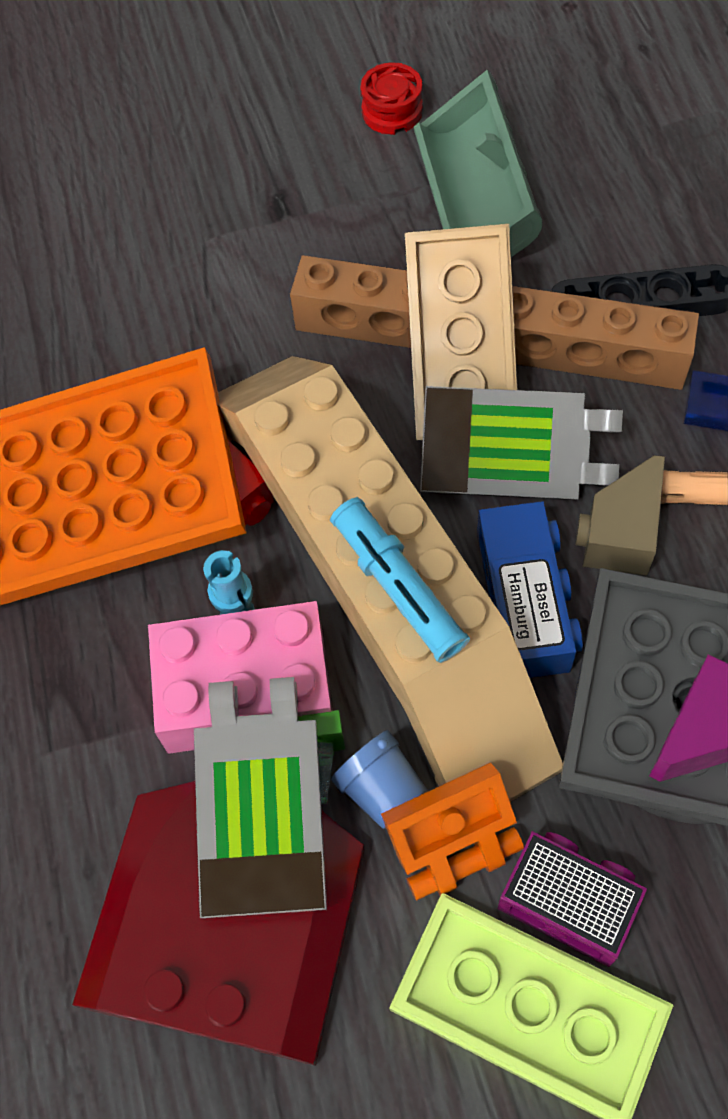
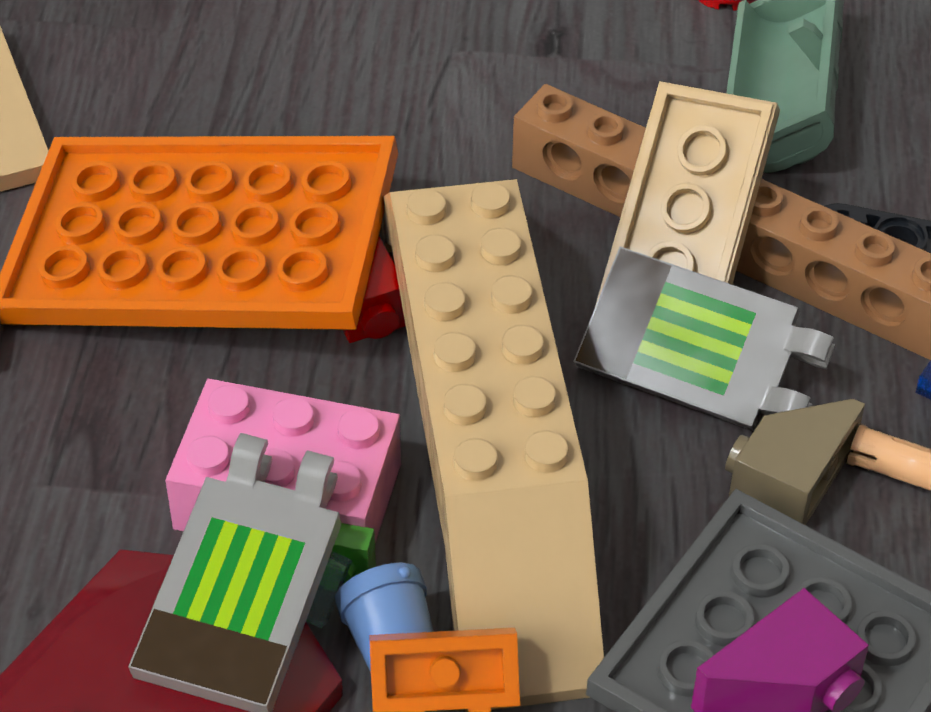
camera: 15 degrees right, 15 degrees down
(228, 586) = (310, 369): medium azure pin -> none
(383, 559) = (477, 362): medium azure pin -> none
(528, 587) = (647, 491): blue brick -> none

